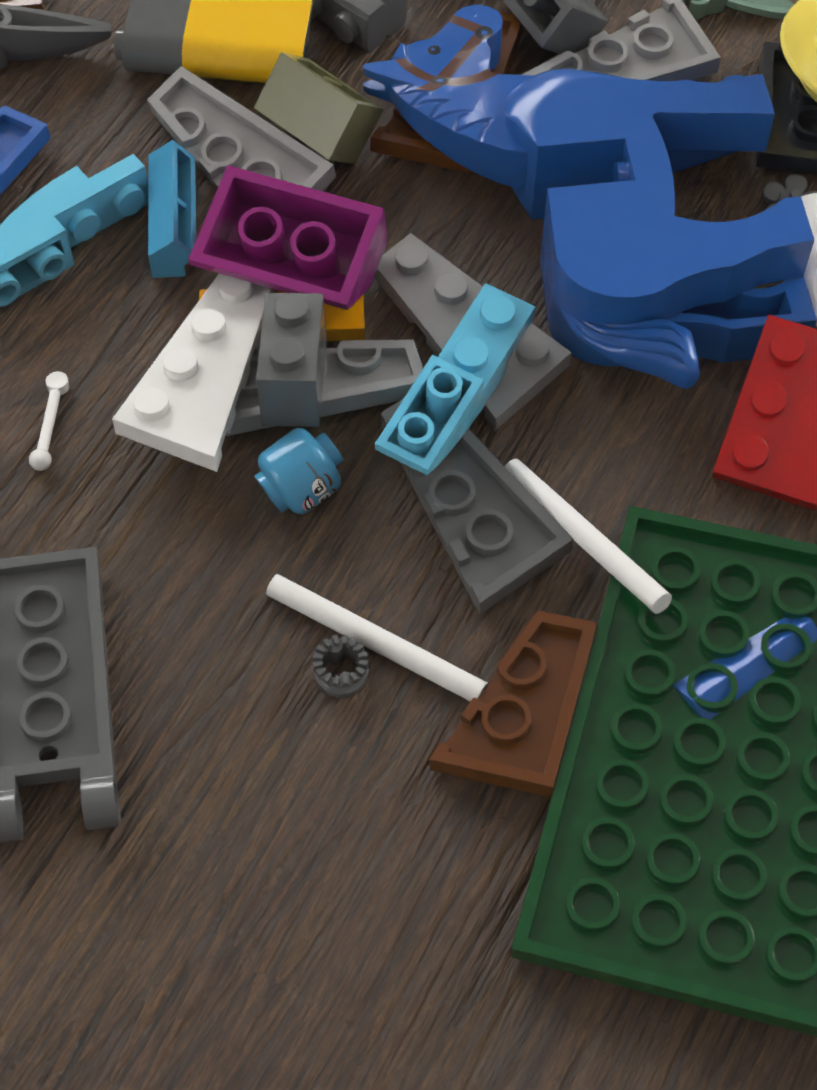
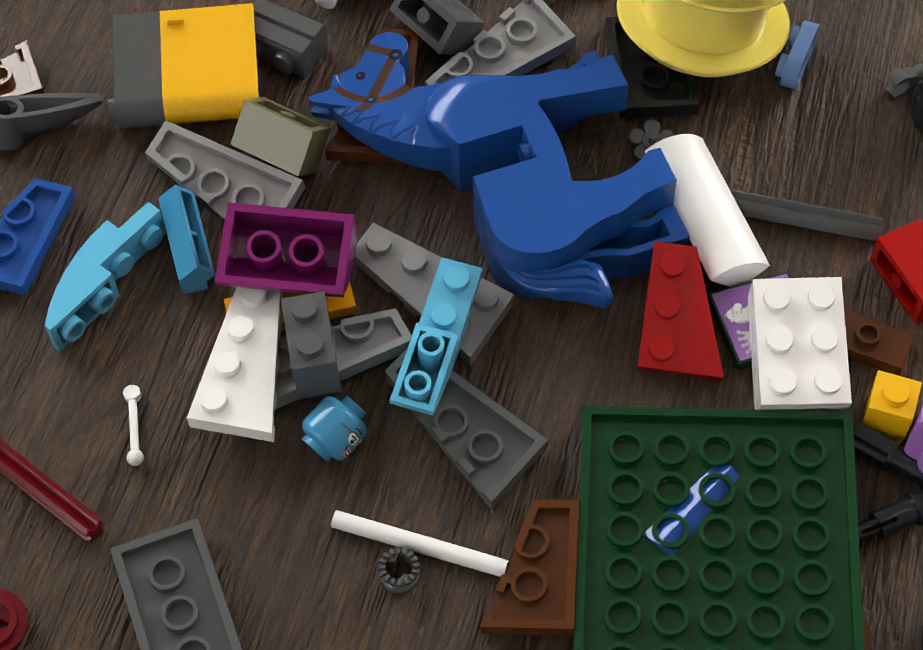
camera: 10 degrees left, 0 degrees up
(593, 541) = (561, 437): white bar -> none

